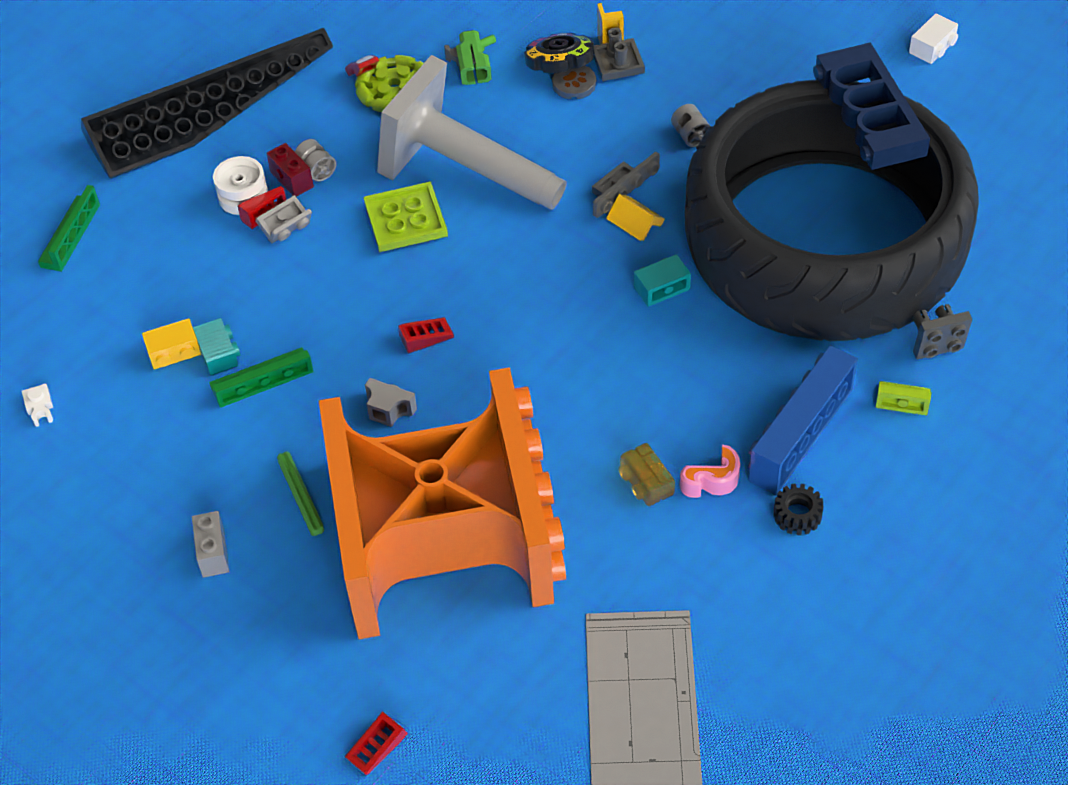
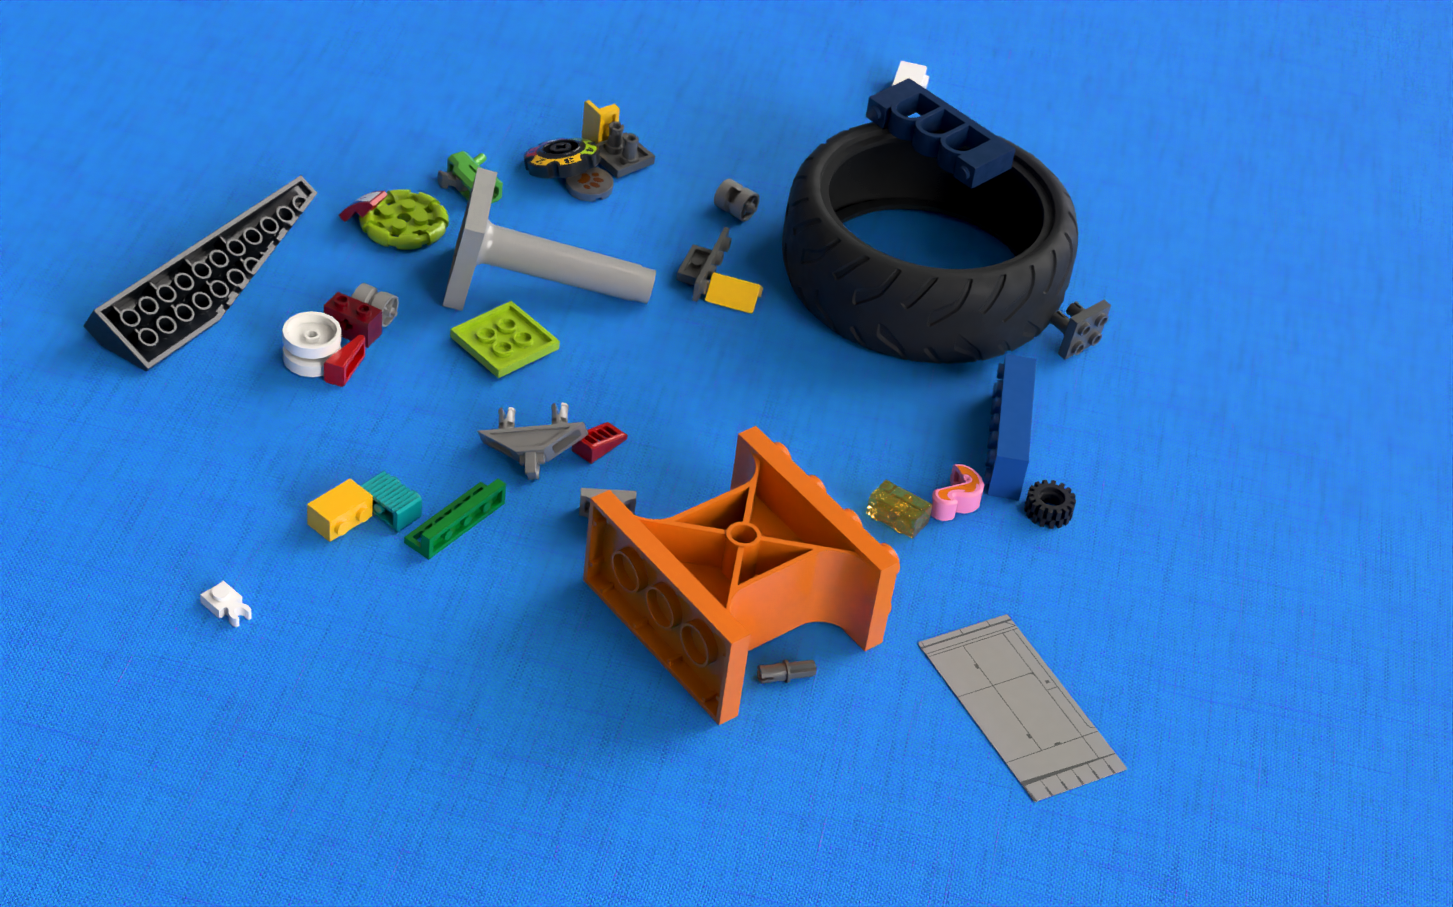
camera: 35 degrees left, 10 degrees down
(70, 230) = (138, 431): green fence -> none
(210, 544) = (518, 679): light grey brick -> none
(284, 219) = (378, 367): light grey bracket -> none
(300, 493) = (573, 612): bright green axle -> none
(361, 324) = (534, 443): none -> light grey connector
(375, 729) = (809, 784): red slope -> none
(443, 606) = (785, 671): none -> dark grey axle
(662, 280) = (799, 341): teal brick -> none
(903, 398) = (1078, 392): lime panel -> none

